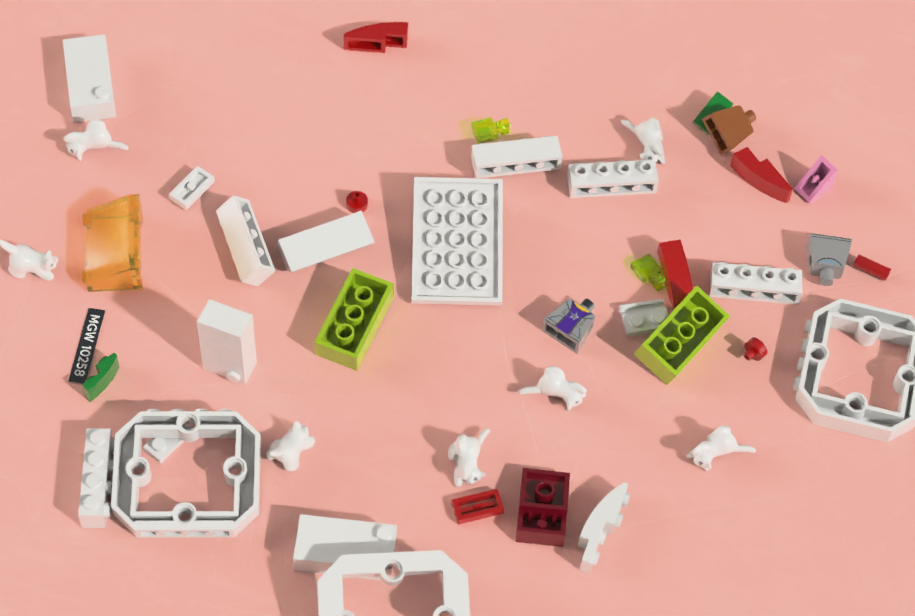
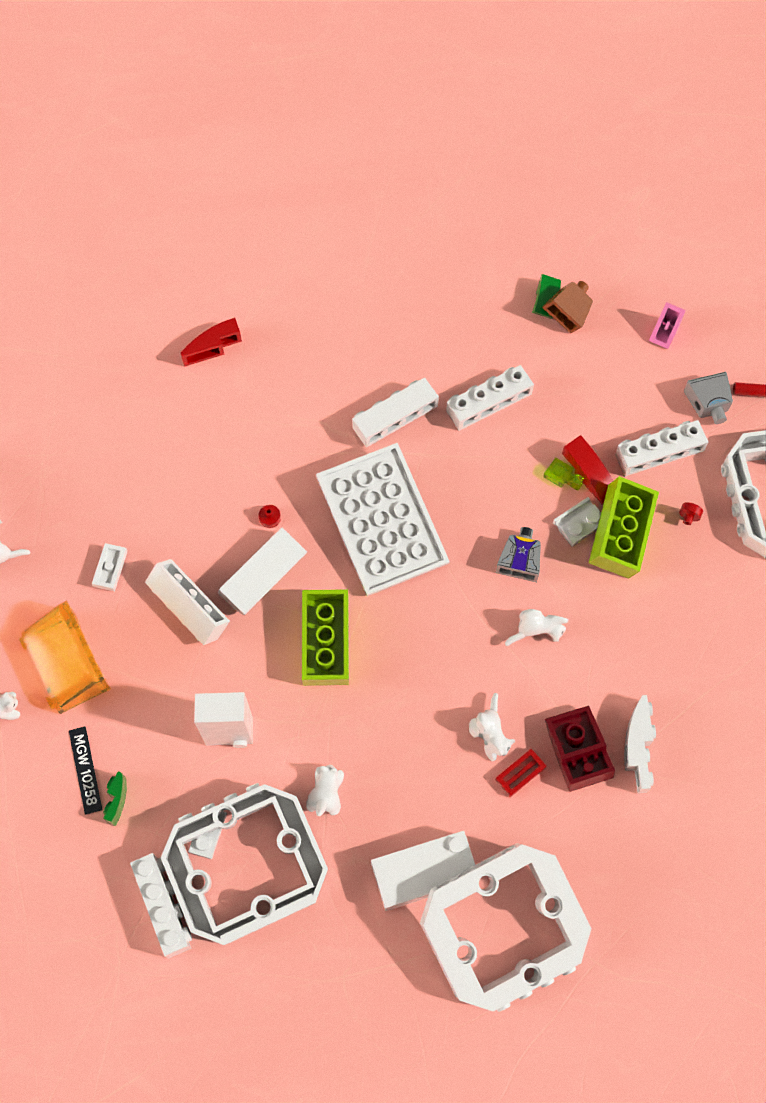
camera: 20 degrees left, 10 degrees up
(487, 130) = (355, 395): clear neon green plate -> none
(650, 137) = (503, 342): white animal -> none
(718, 443) = (703, 618): white animal -> none
(761, 175) = (617, 340): red slope -> none

